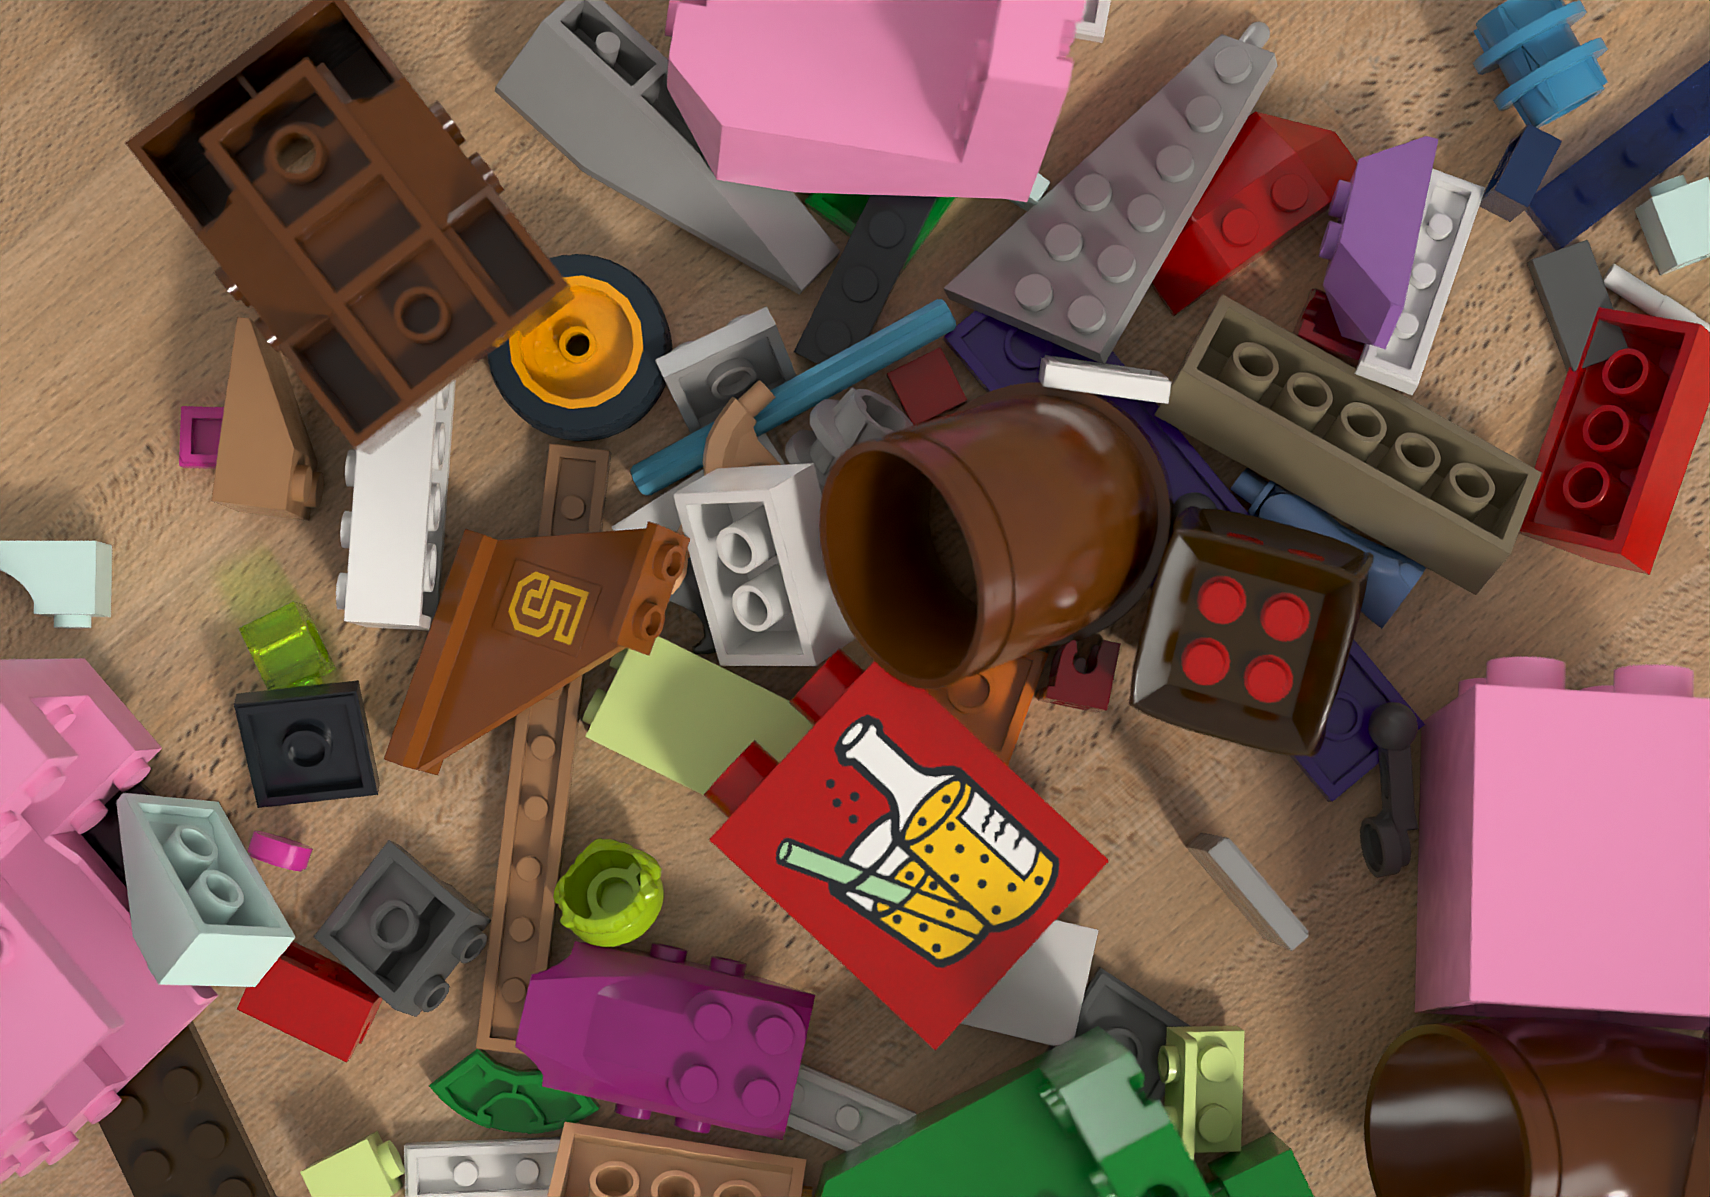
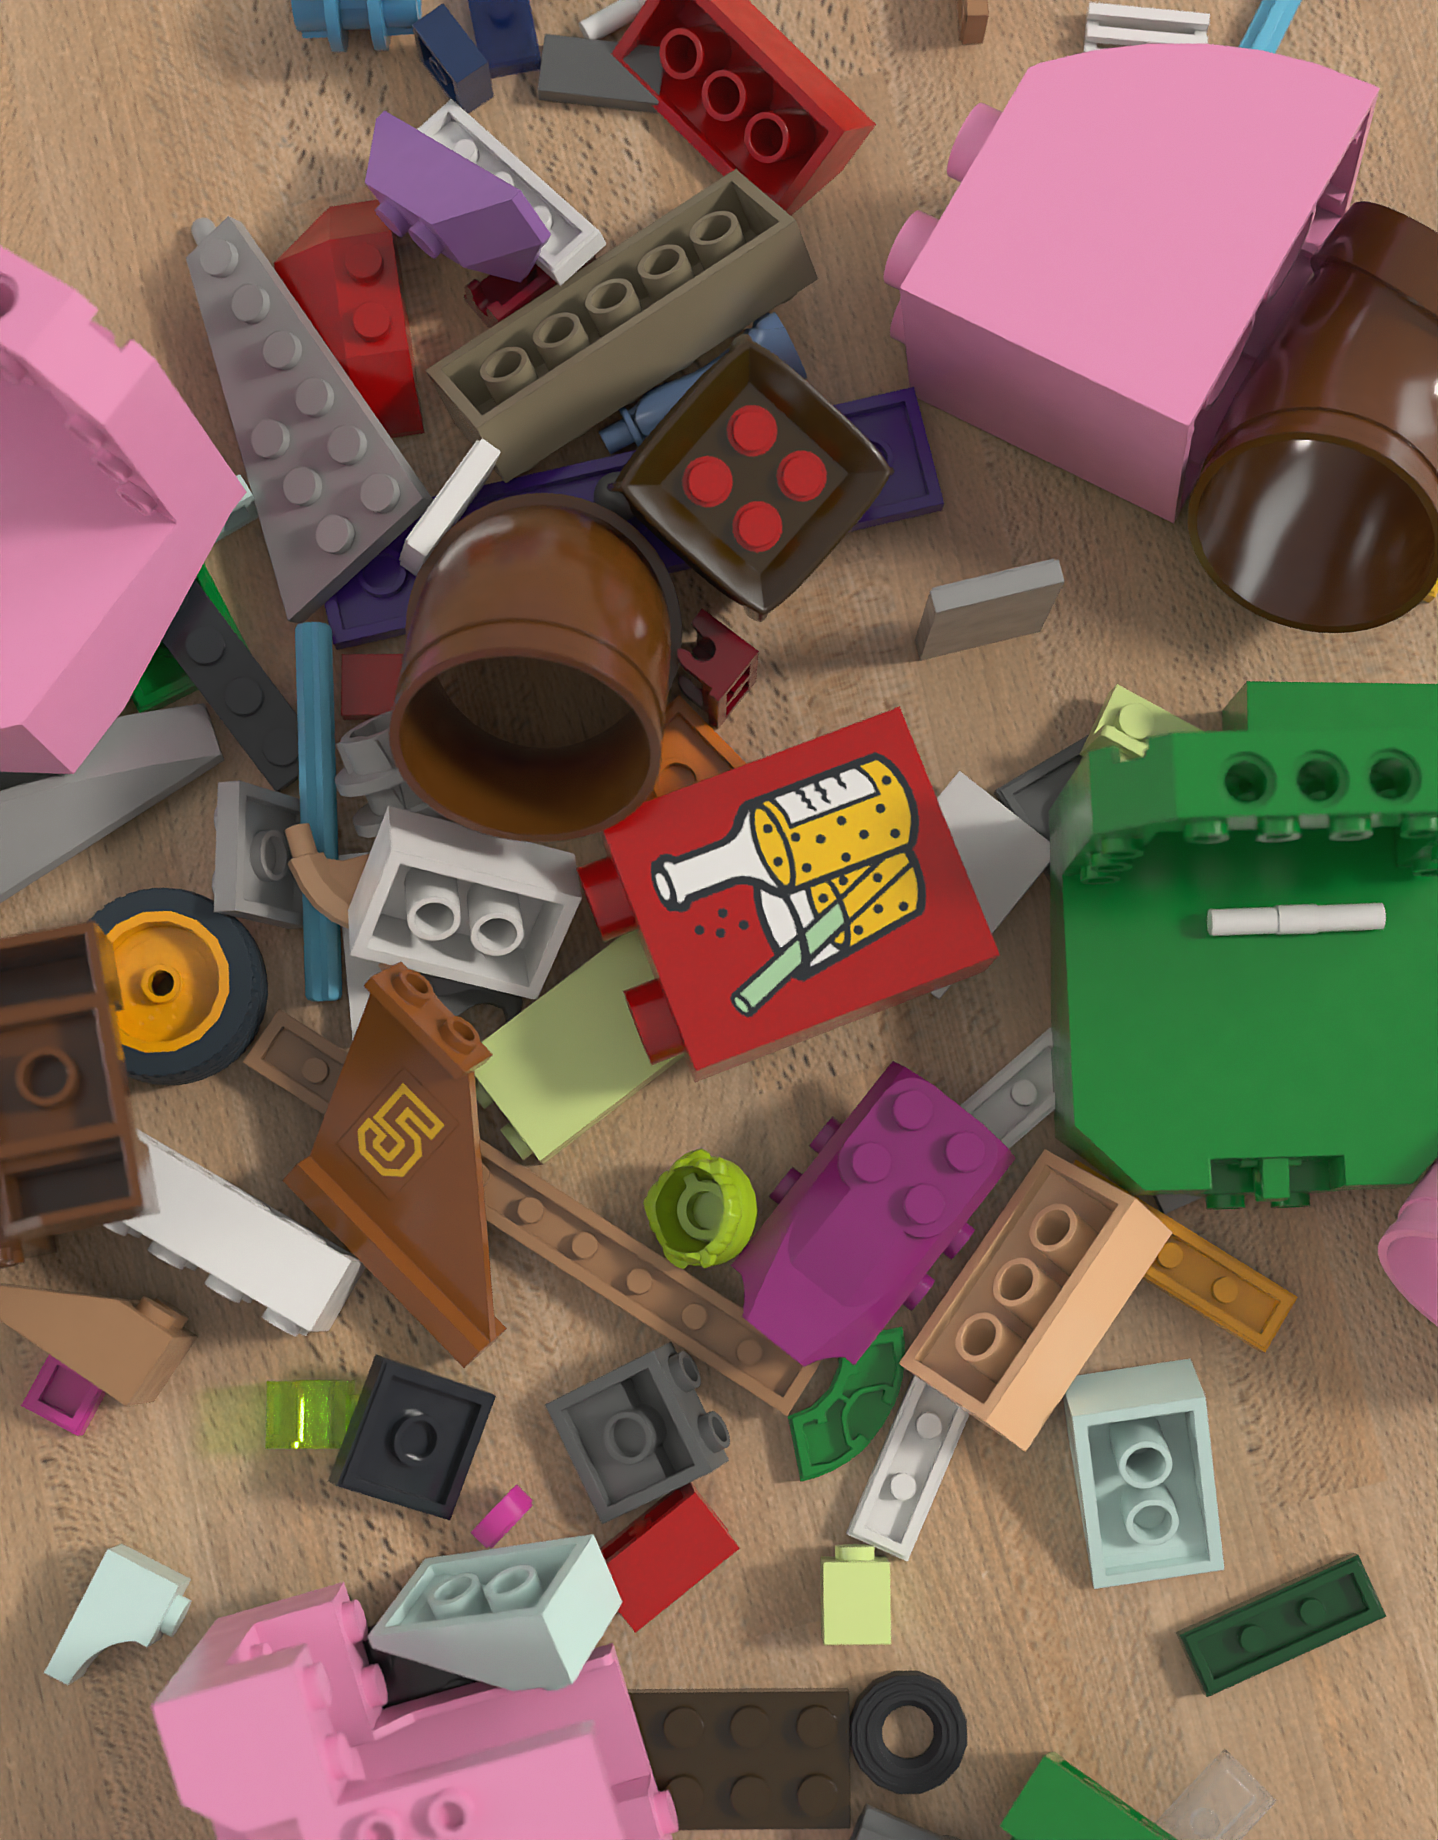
camera: 65 degrees left, 5 degrees down
(1385, 836) = (1000, 473): dark grey piece -> none

